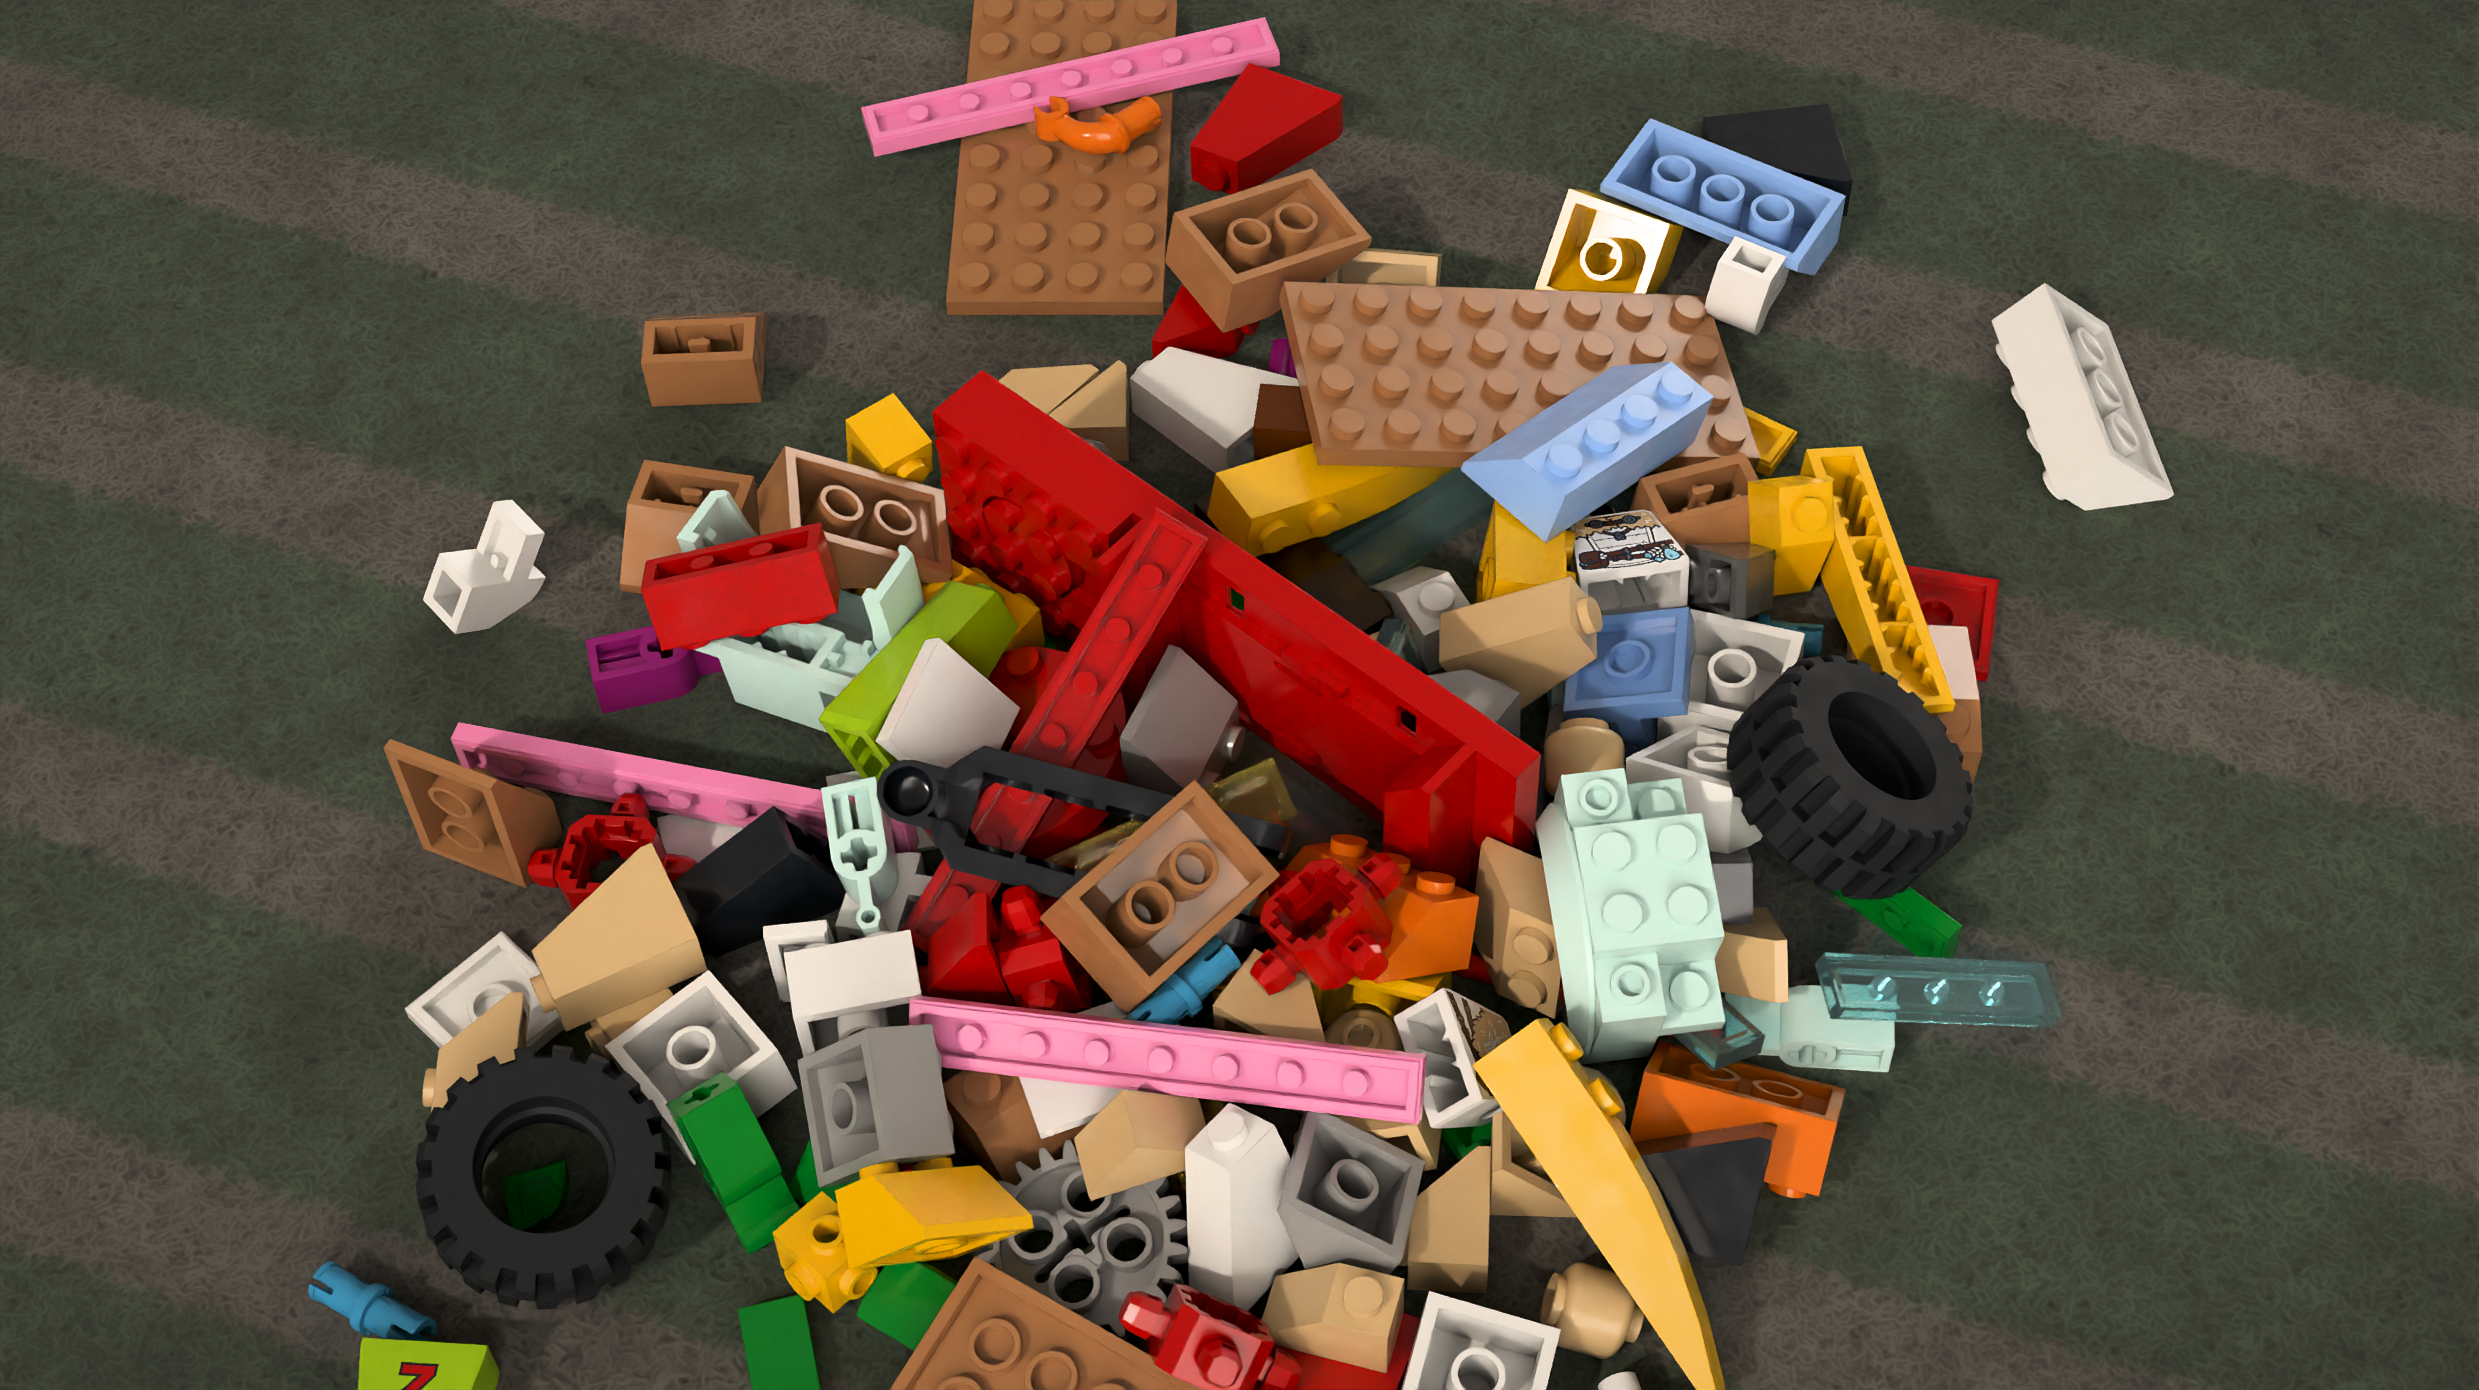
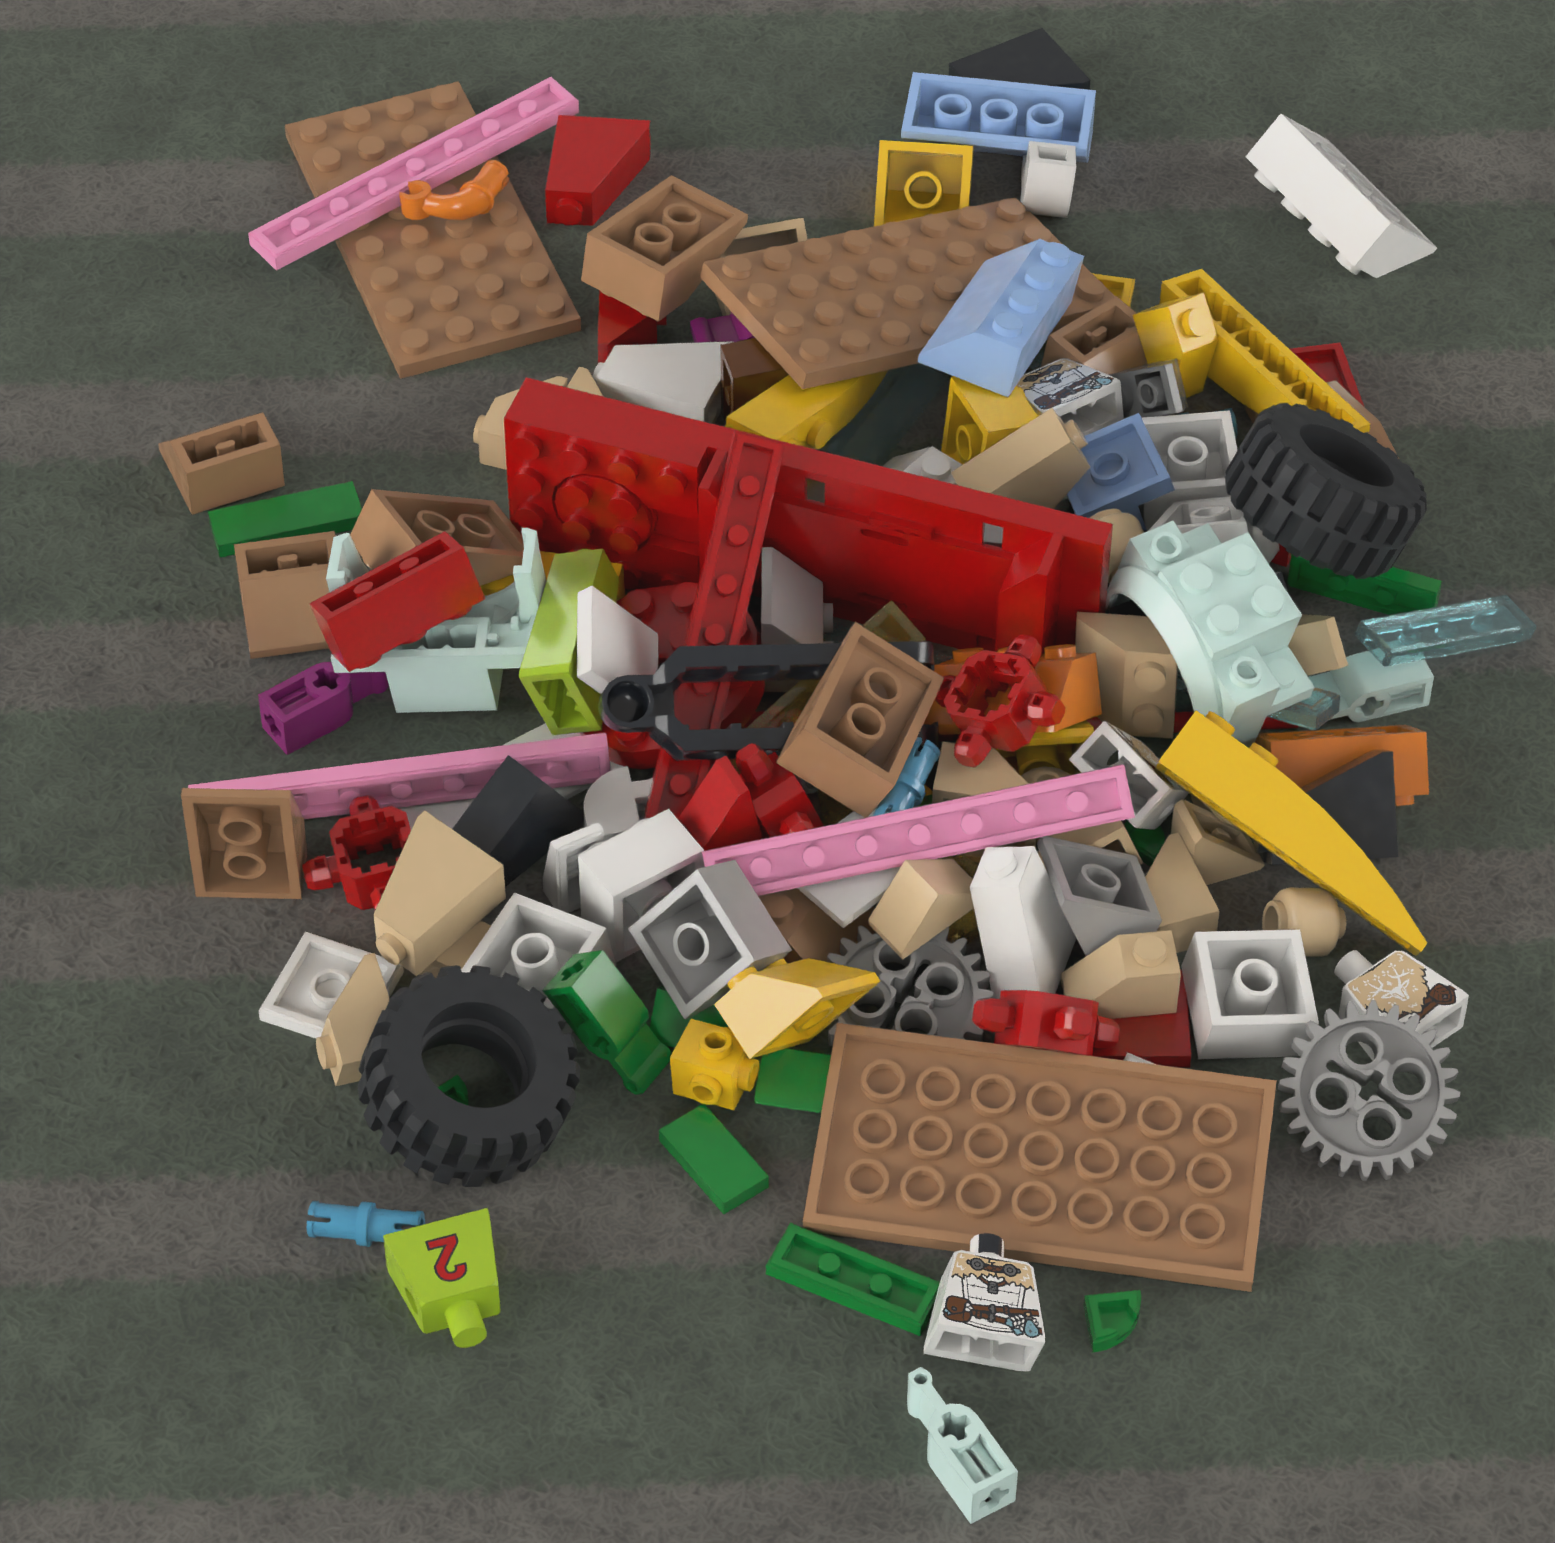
camera: 25 degrees left, 5 degrees down
(488, 583) = (144, 674): white brick -> none
(735, 438) = (284, 516): none -> green tile
(859, 837) = (590, 768): light aqua piece -> none
(889, 441) = (435, 470): yellow slope -> none

